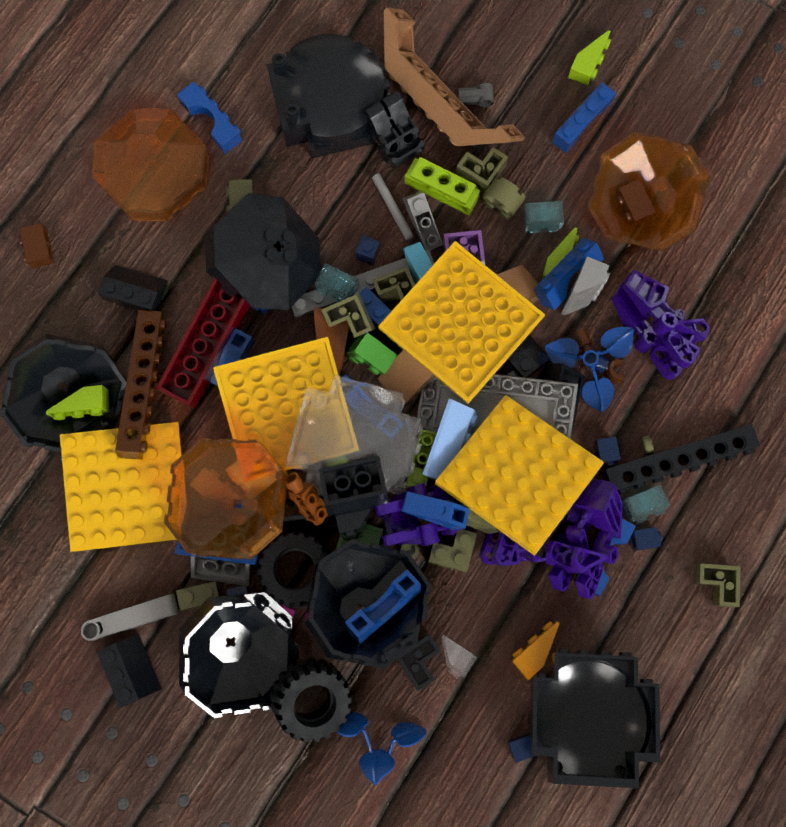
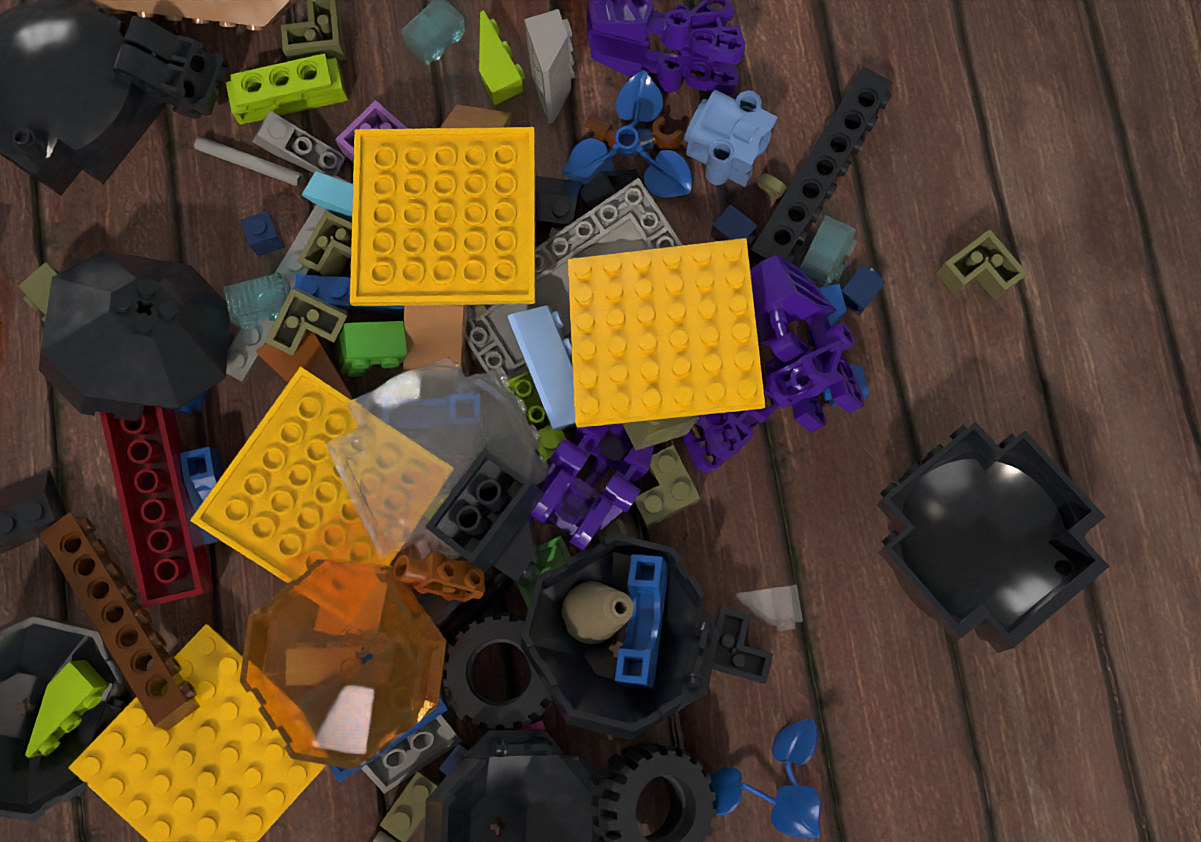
camera: 40 degrees left, 0 degrees up
(365, 581) = (595, 612): none -> dark tan cone
(436, 510) = (607, 456): blue slope -> none
(503, 197) = (369, 44): olive brick -> none
(520, 747) = (933, 641): dark blue brick -> none
(534, 655) = (856, 525): light orange slope -> none
(553, 287) = (515, 96): blue arch -> none
(648, 400) = (729, 136): none -> medium blue piece

